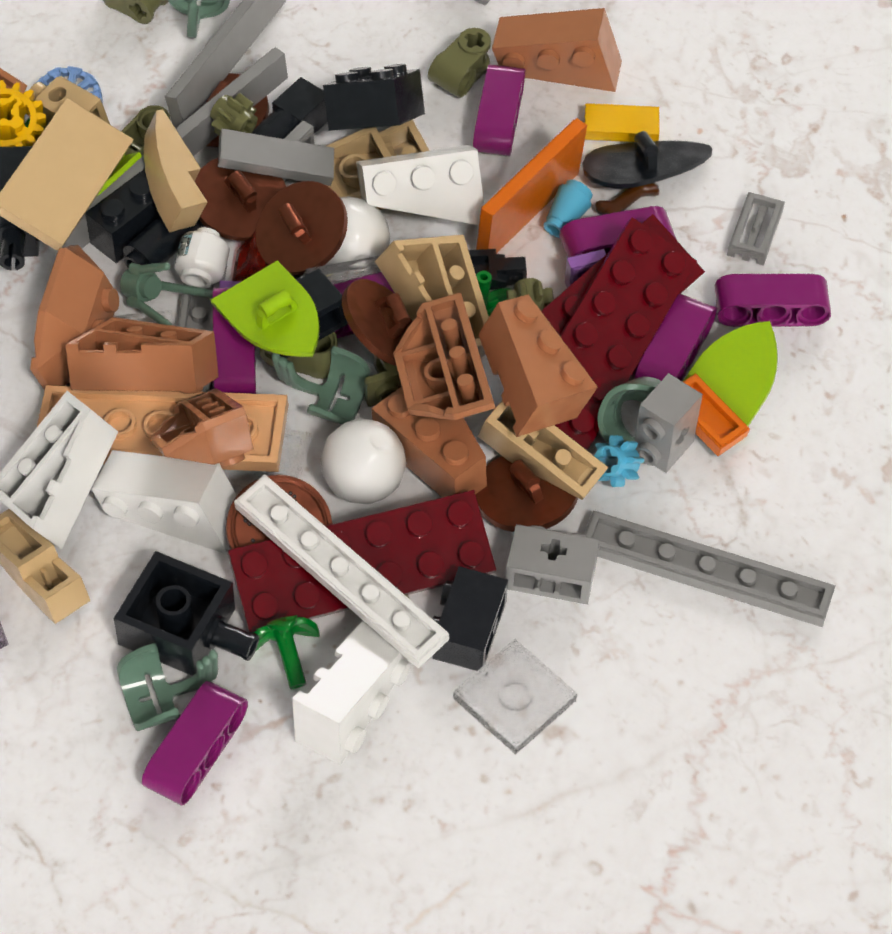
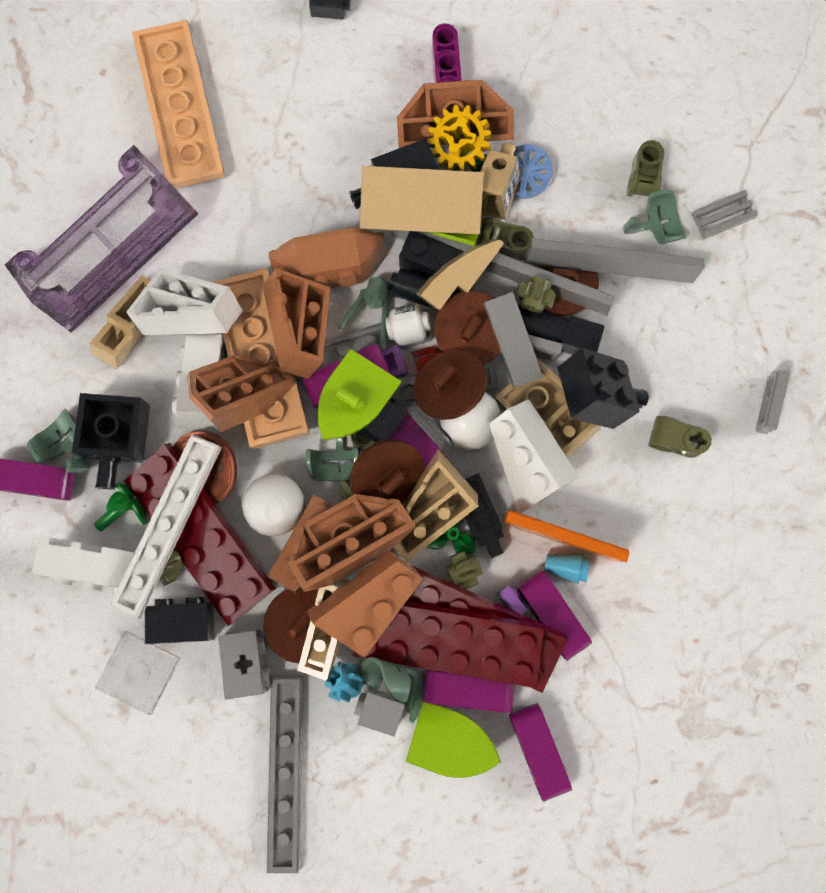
camera: 70 degrees right, 25 degrees up
(499, 110) = (644, 481): magenta beam -> none
(561, 47) = (723, 506): nougat wedge -> none
(620, 122) = (675, 579): yellow tile -> none
(626, 199) = (615, 614): reddish brown piece -> none
(643, 161) = (639, 609): black shield -> none
(716, 421) = (411, 734): orange tile -> none
(748, 250) = (585, 716): light grey tile -> none

